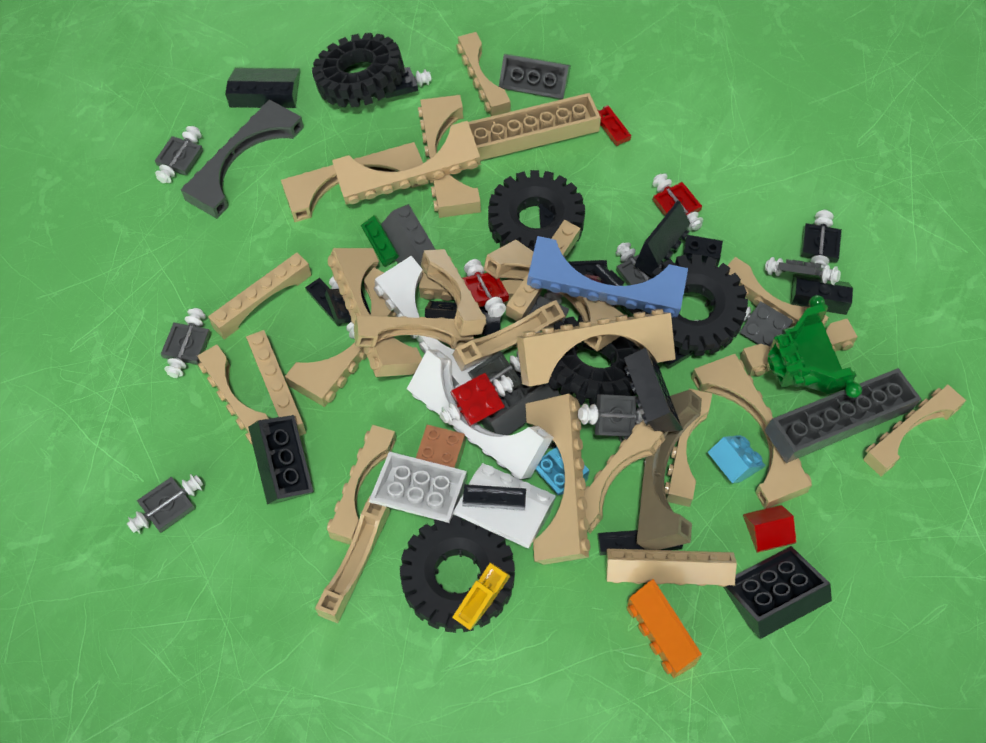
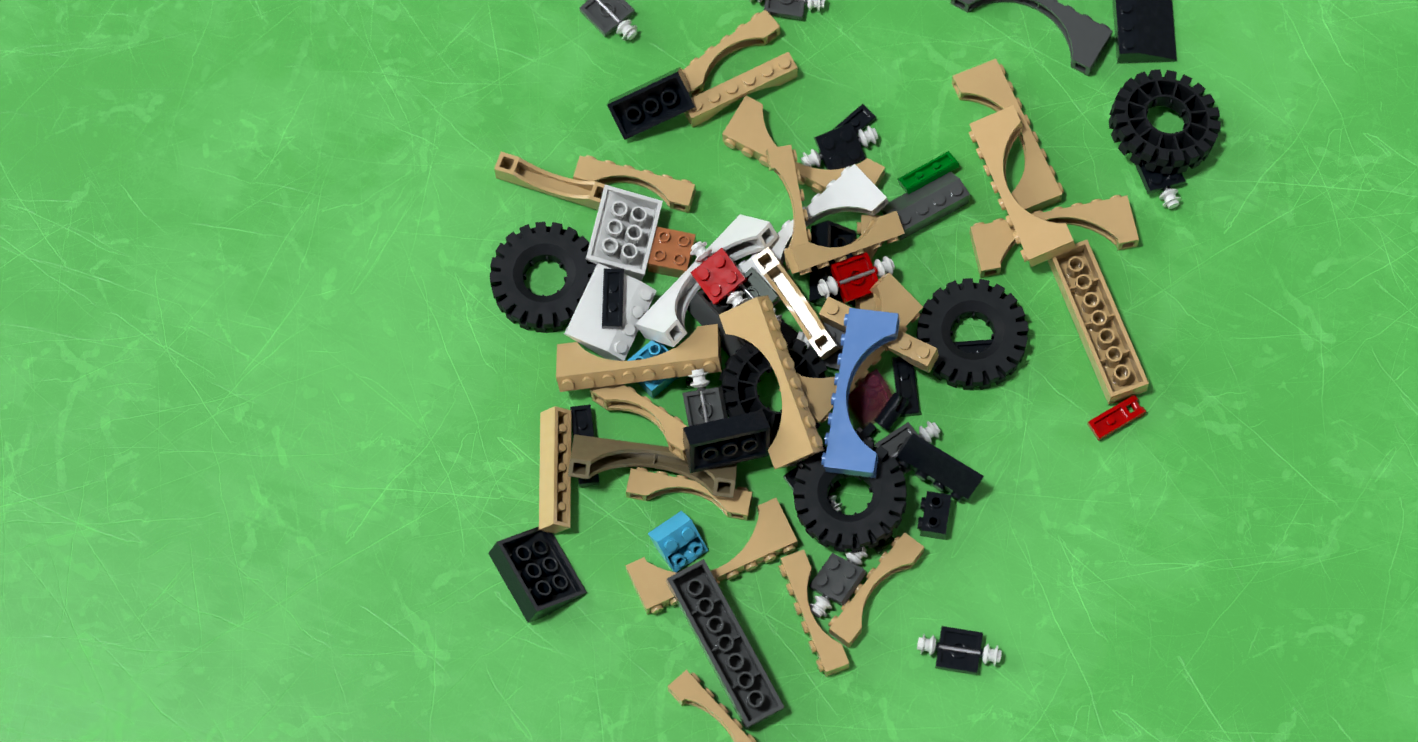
camera: 90 degrees right, 10 degrees up
(230, 316) = (820, 36): tan arch -> none
(349, 269) = (878, 142): tan arch -> none
(481, 596) = (515, 293): yellow slope -> none
(495, 98) = (1218, 251): tan arch -> none
(534, 76) = (1186, 326): dark grey slope -> none
(663, 629) = (494, 463): orange slope -> none
(669, 195) = (1004, 490): red plate -> none
(771, 528) = (604, 571): red slope -> none
(807, 357) = (787, 608): green piece -> none
(808, 268) = (909, 618): plate -> none
(836, 296) = (891, 644): black slope -> none

